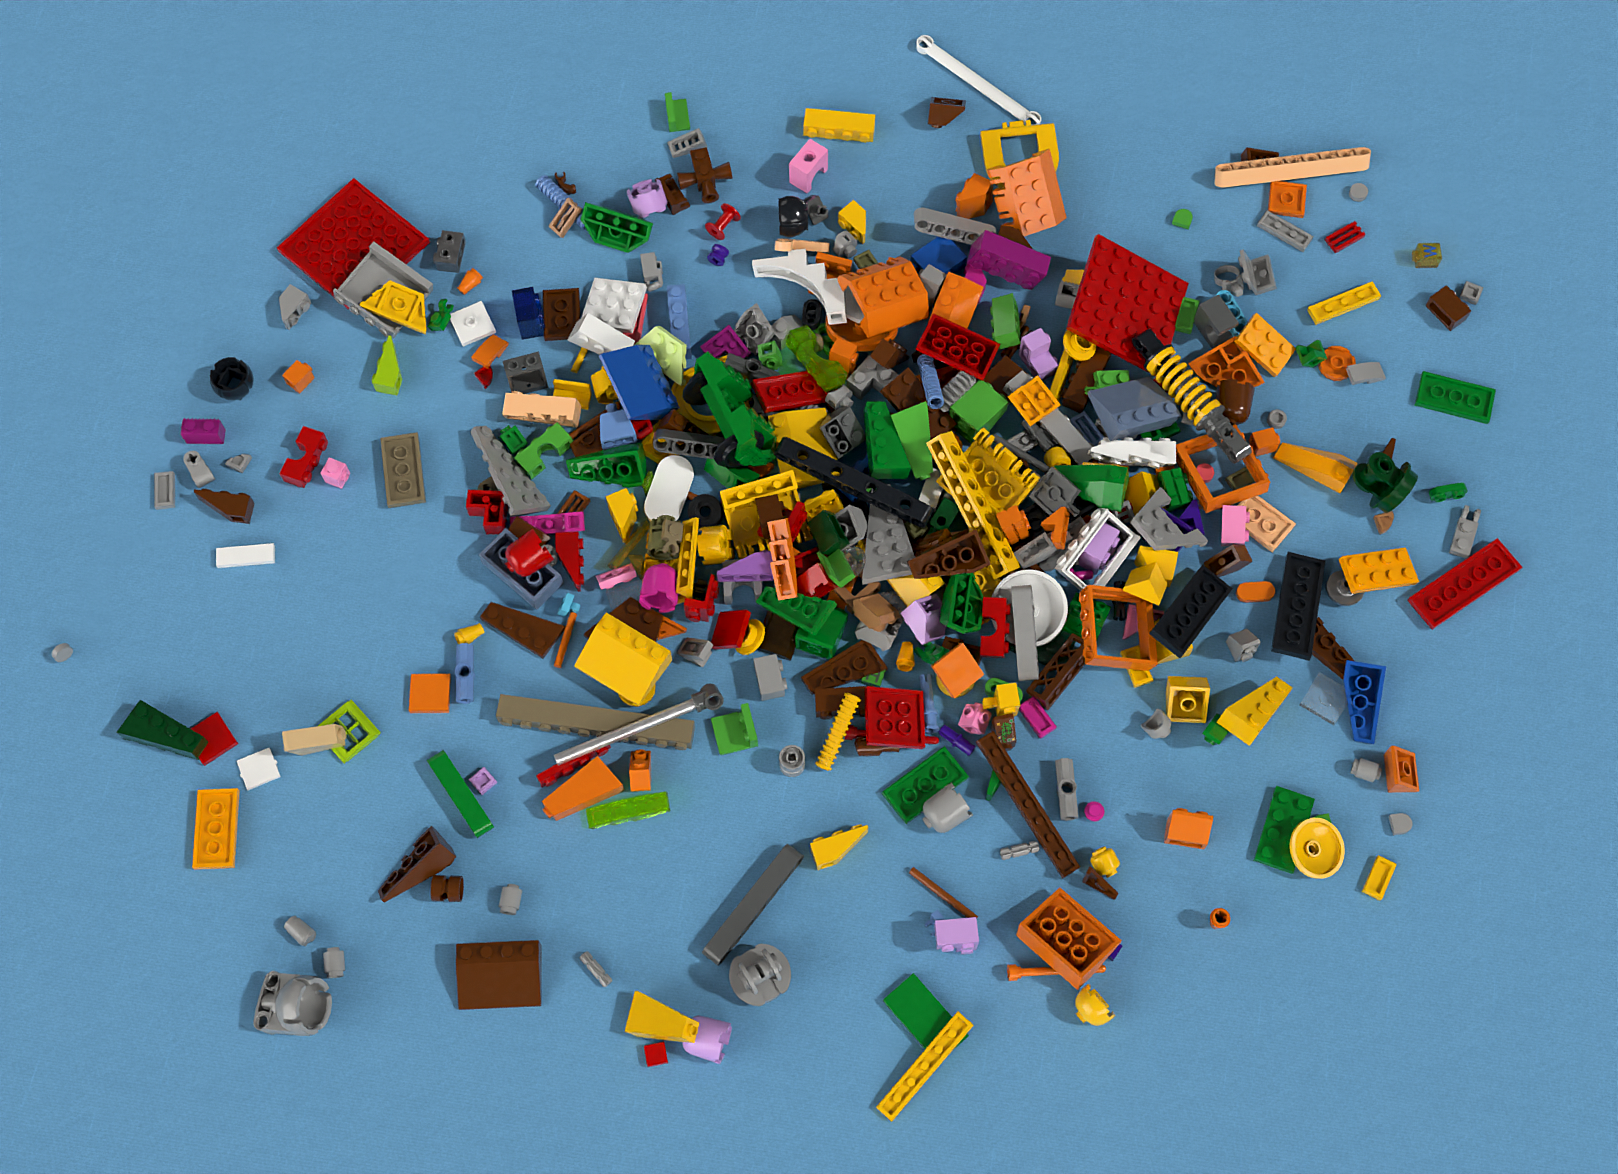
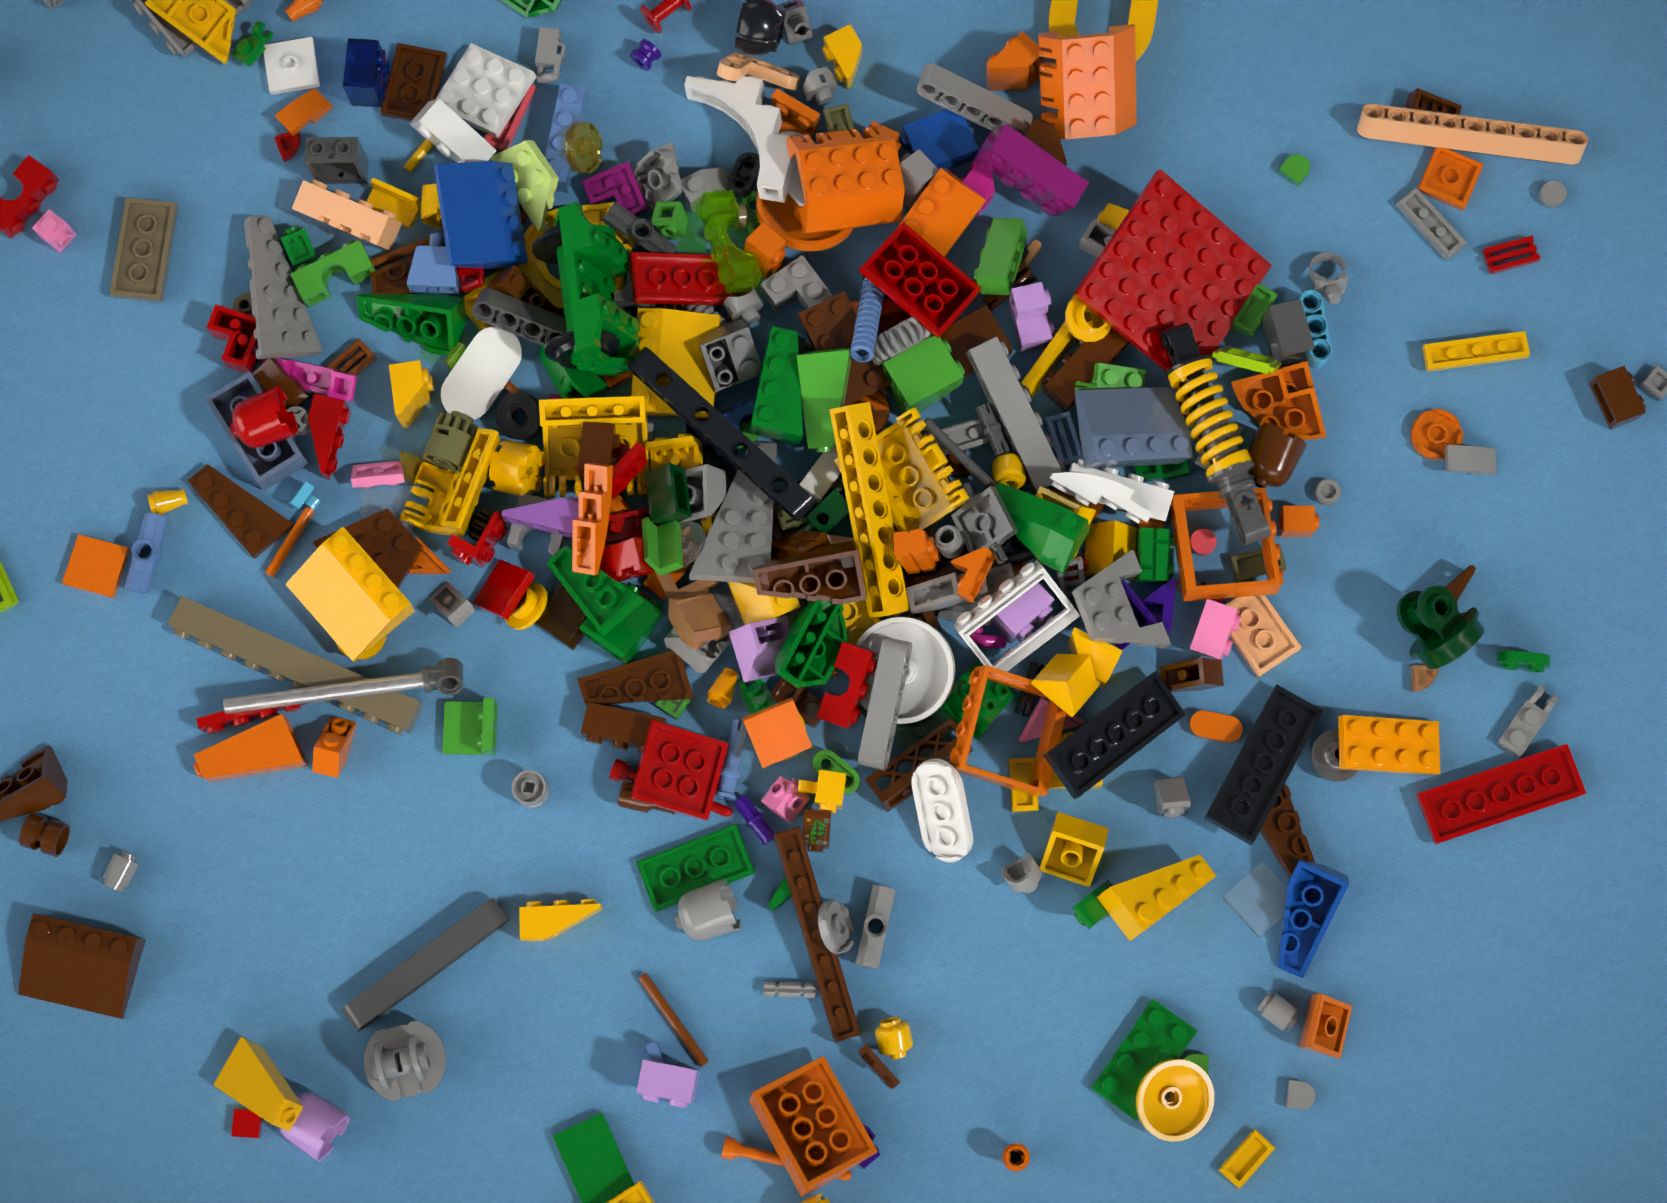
camera: 15 degrees right, 10 degrees up
(298, 376) = (43, 80): orange brick -> none
(388, 373) = (163, 105): lime slope -> none
(460, 793) = (96, 713): green beam -> none
(482, 781) = (131, 703): lavender tile -> none
(595, 969) = (203, 991): light grey axle -> none
(628, 809) = (302, 795): clear neon green slope -> none
(629, 545) = (407, 436): clear yellow tile -> none
(659, 588) = (423, 509): dark pink cylinder -> none
(672, 534) = (458, 443): dark tan plate -> none
(694, 323) = (583, 147): none -> clear yellow tile
(769, 677) = (535, 668): light grey brick -> none
(838, 731) = (600, 768): yellow piece -> none
(889, 354) = (828, 263): reddish brown slope -> none
(1034, 401) = (998, 385): light orange slope -> none
(1034, 512) = (949, 541): none -> light grey brick
(1037, 717) = (869, 817): dark pink tile -> none
(1039, 795) = (835, 926): none -> light grey tile
(1088, 694) = (942, 810): none -> white tile
(1094, 811) = (903, 965): dark pink plate -> none
(1188, 828) = (1015, 1026): orange slope -> none
(1195, 344) = (1247, 359): none -> lime piece
(1257, 273) = (1369, 276): light grey bracket -> none
(1265, 344) = (1344, 384): light orange plate -> none
(1312, 354) = (1404, 414): green panel -> none
(1322, 466) = (1364, 574): light orange wedge -> none
(1427, 255) = (1614, 313): clear yellow brick -> none
(1455, 397) = (1582, 527): green tile -> none

